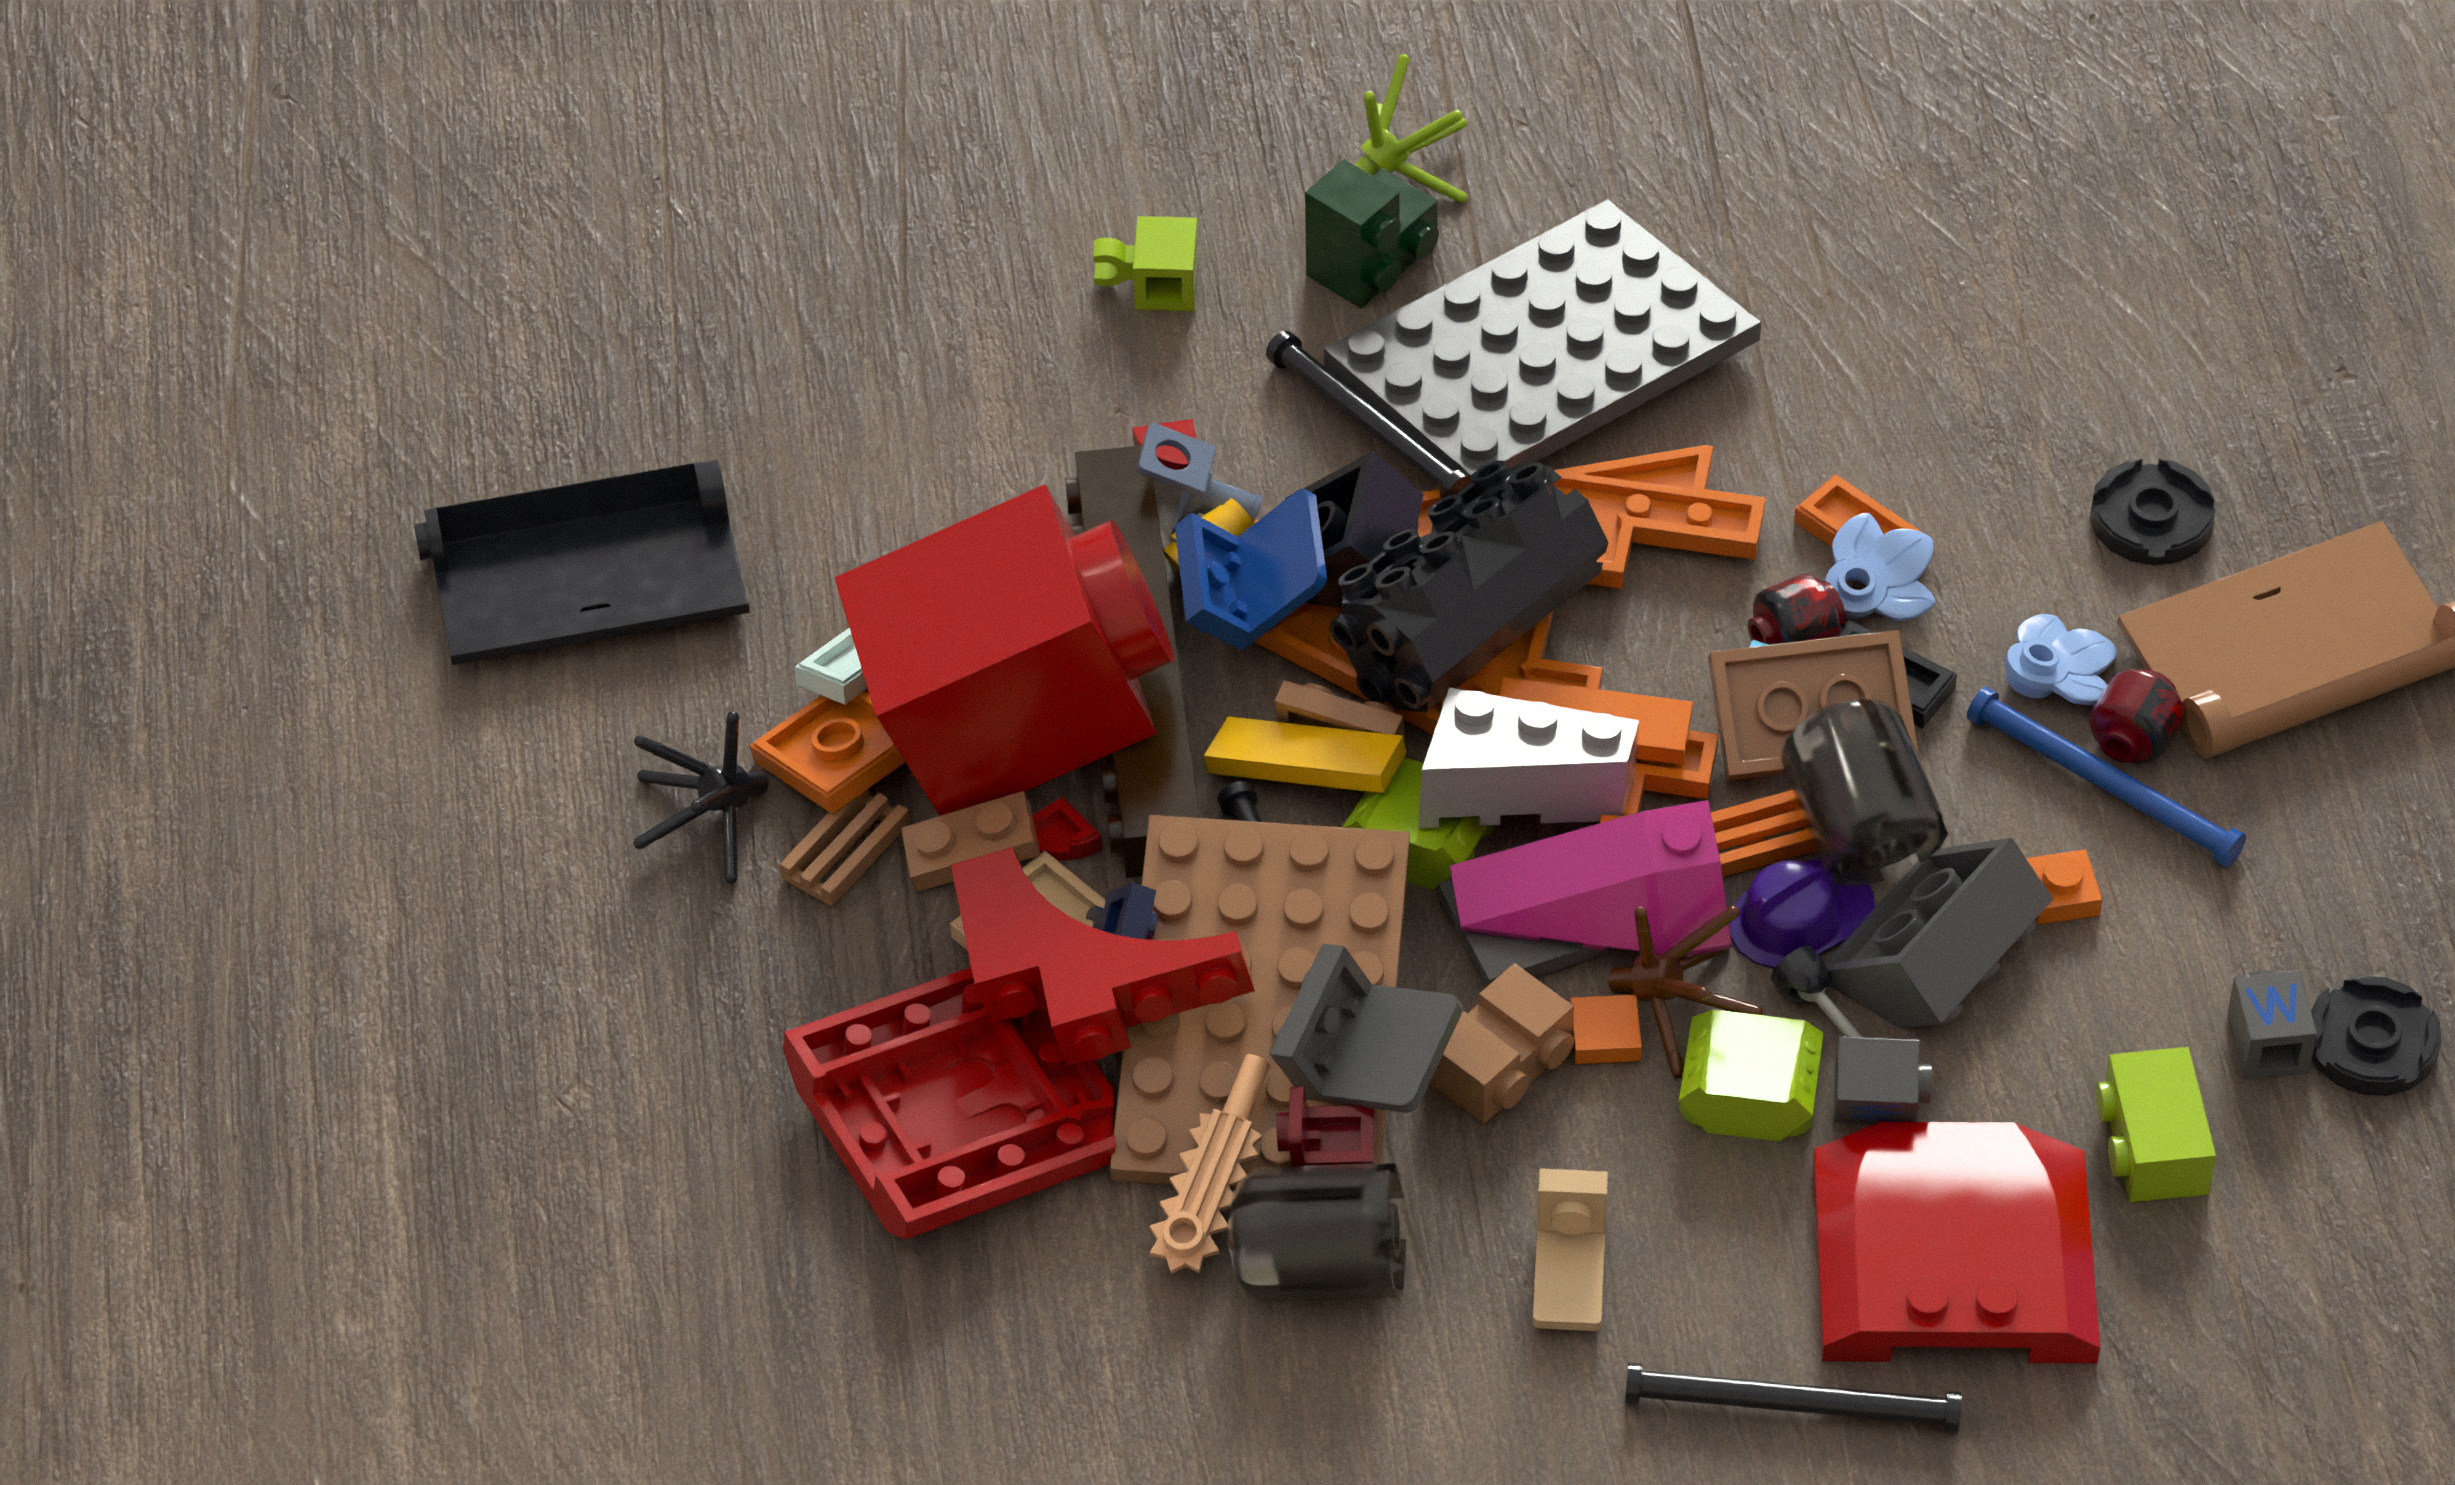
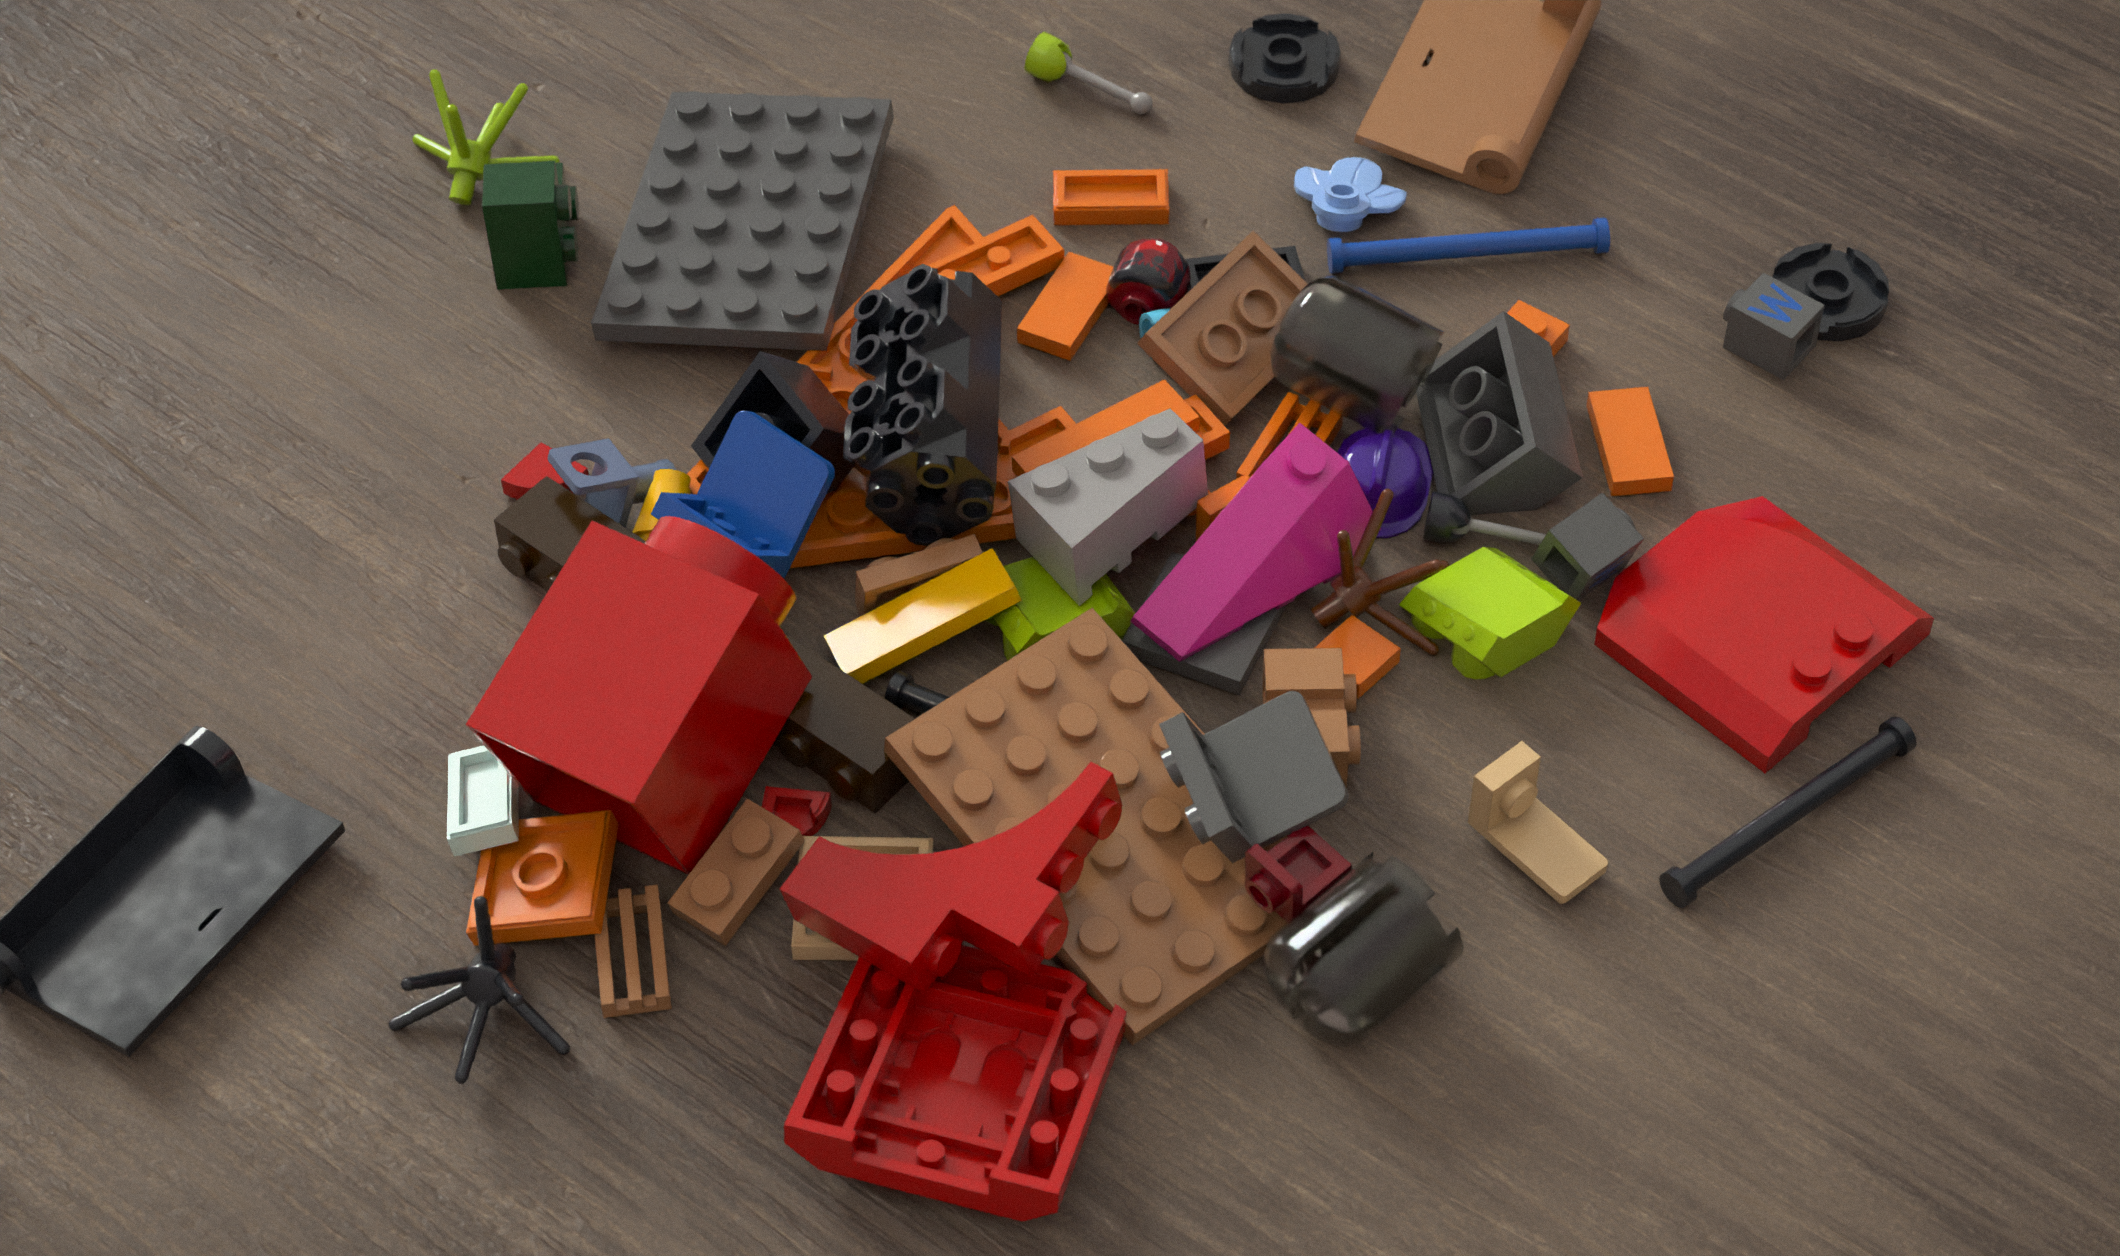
camera: 45 degrees left, 0 degrees up
(1126, 912) = (955, 823): dark blue plate -> none
(1159, 263) = (384, 345): lime brick -> none
(1212, 1168) = (1225, 970): light nougat piece -> none
(1287, 351) = (698, 349): black bar -> none
(1712, 594) = (1066, 307): none -> orange tile
(1887, 567) = (1164, 207): light blue plate -> none
(1948, 377) = (1051, 59): none -> hinge
(2037, 1029) = (1629, 441): none -> orange tile
(2138, 714) = (1446, 187): dark red head -> none
(2156, 1124) = (1788, 442): lime brick -> none

